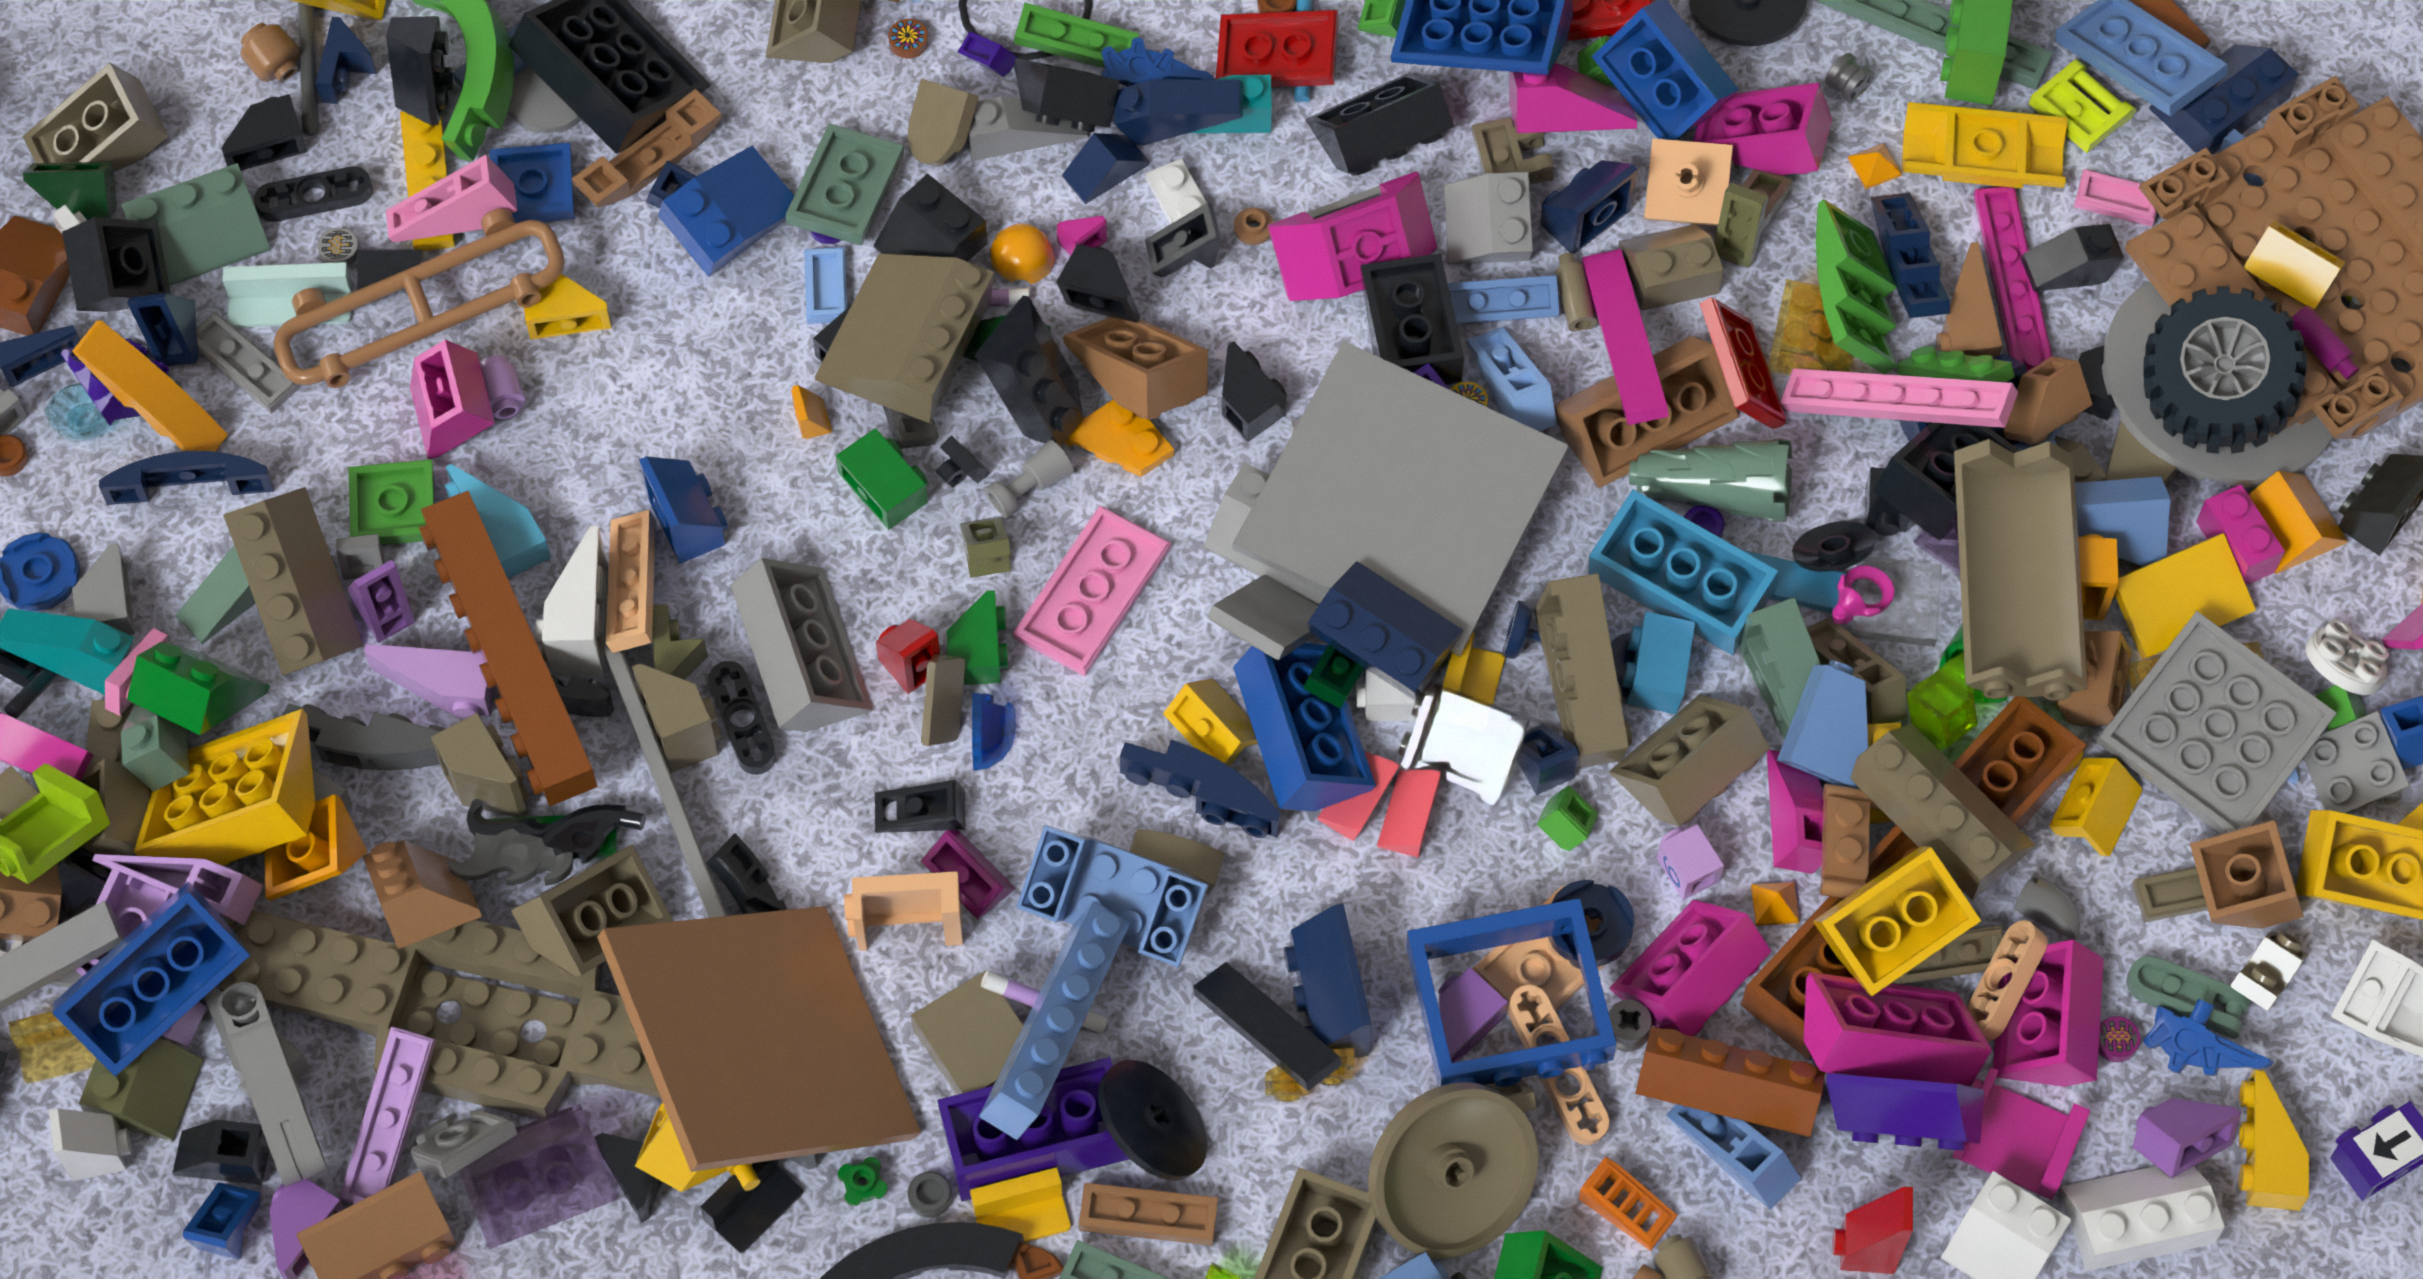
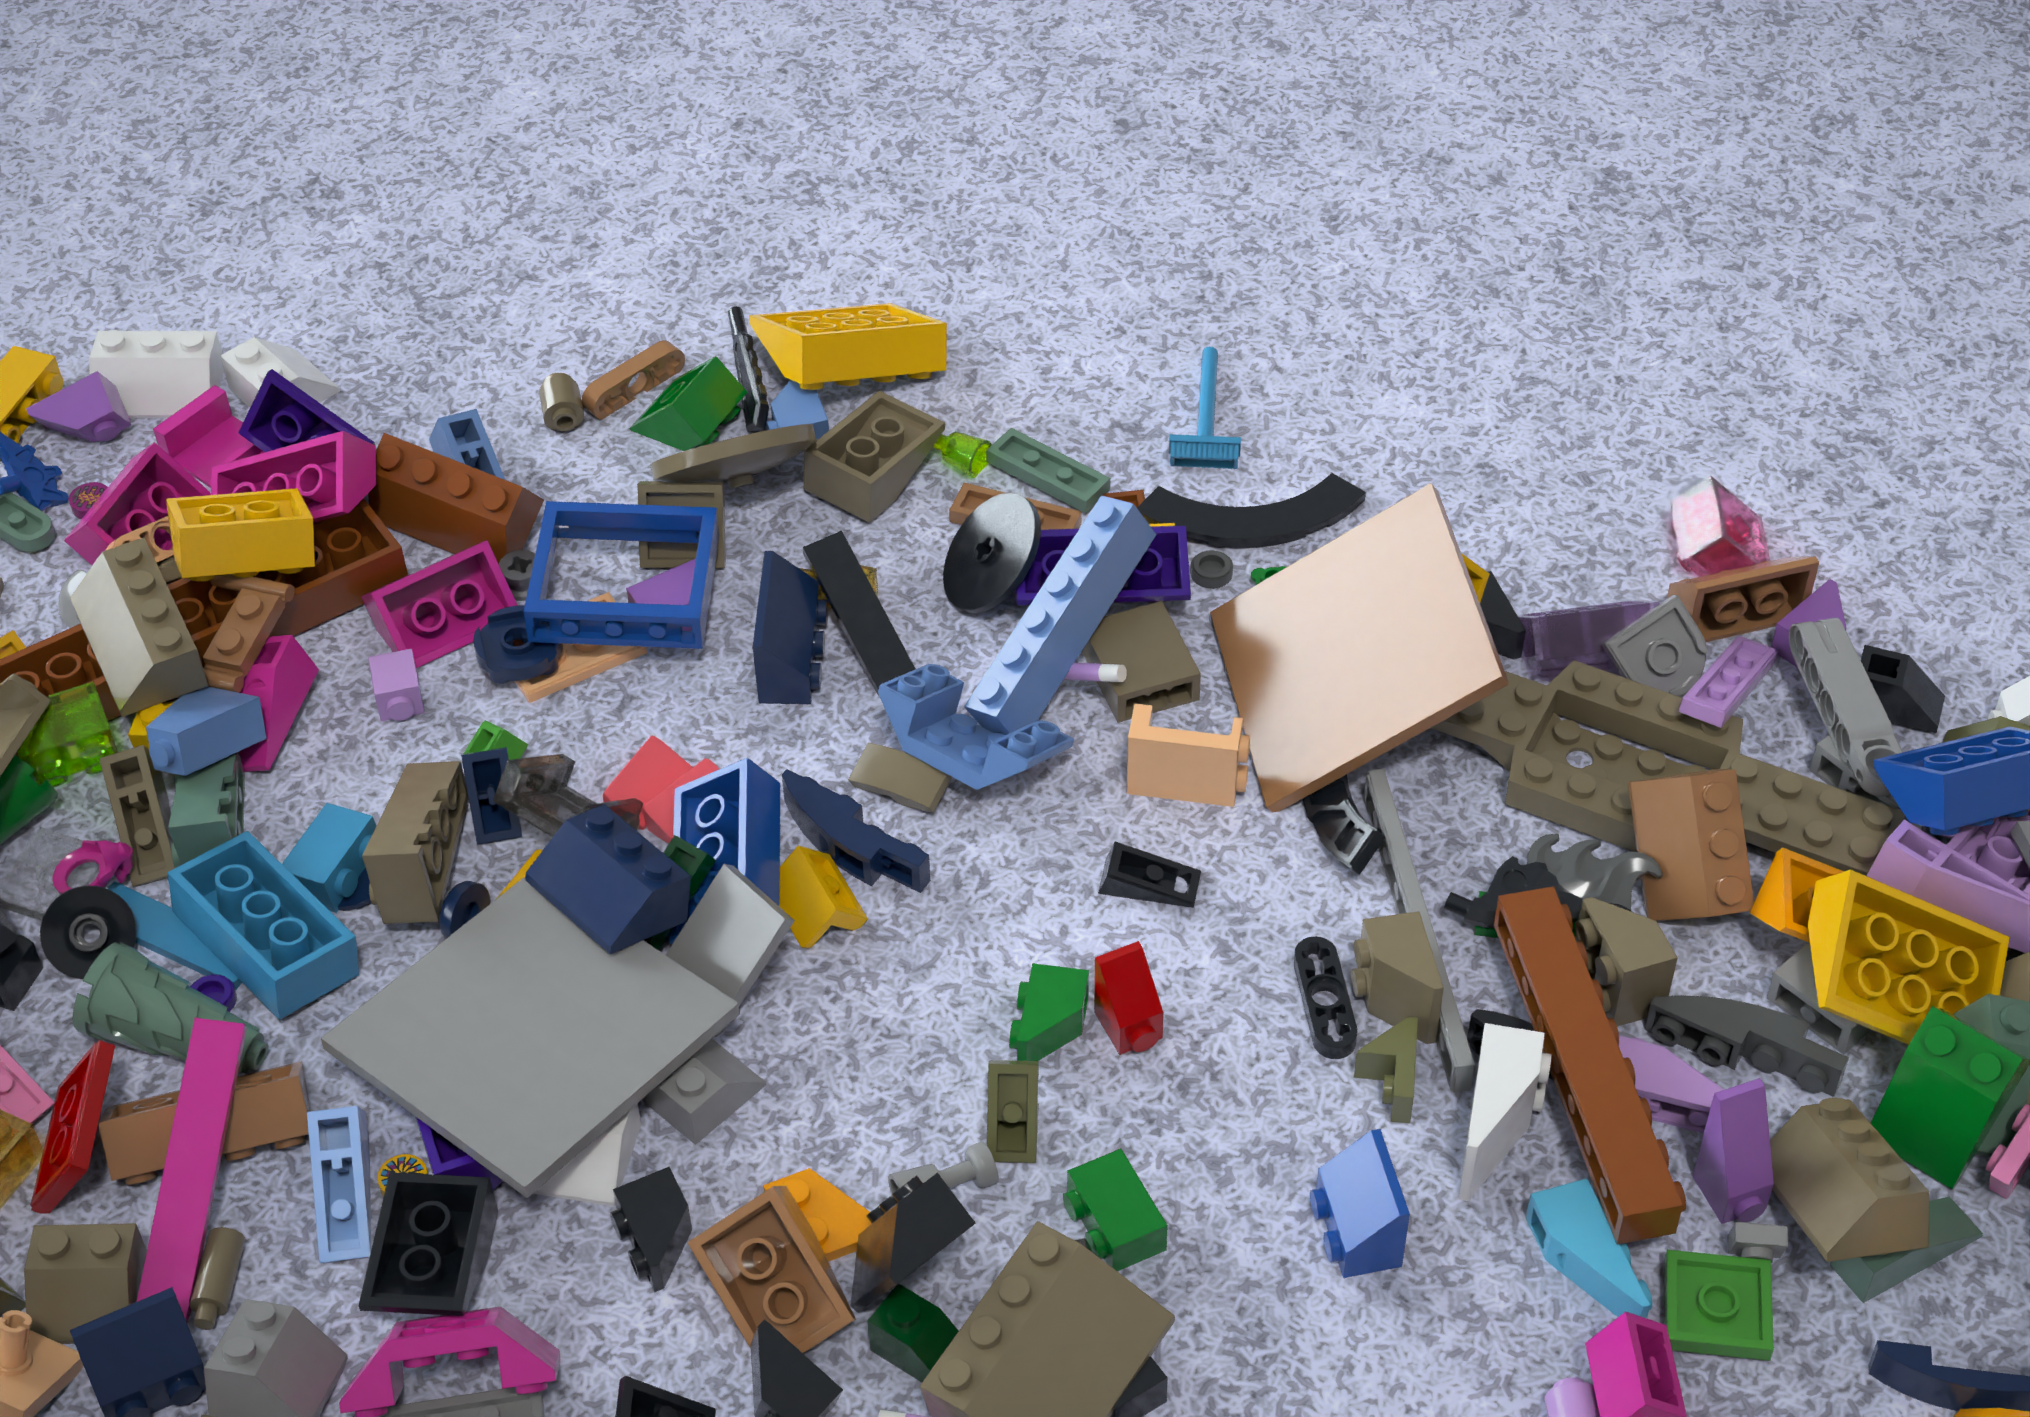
camera: 165 degrees left, 15 degrees down
(221, 1220) = (1898, 622): blue slope -> none
(570, 915) = (1511, 800): dark tan slope -> none
(631, 581) = (1434, 1132): light nougat plate -> none
(799, 645) = (1247, 1047): light grey slope -> none
(810, 413) = (1190, 1313): light orange slope -> none
(943, 699) = (1112, 938): dark tan slope -> none
(960, 464) = (1015, 1211): black tile -> none
(979, 880) = (1111, 812): magenta slope -> none
(991, 730) = (1055, 935): clear blue brick -> none
(1092, 590) = (904, 1059): bright pink tile -> none
(1504, 299) = (302, 1280): medium blue plate -> none
(1554, 1027) = (603, 555): light nougat beam -> none
(1604, 1205) = (596, 467): orange slope -> none
(1691, 759) = (345, 767): dark tan slope -> none
(1775, 903) = (334, 654): light orange slope -> none
(1875, 1233) = (387, 370): red slope -> none

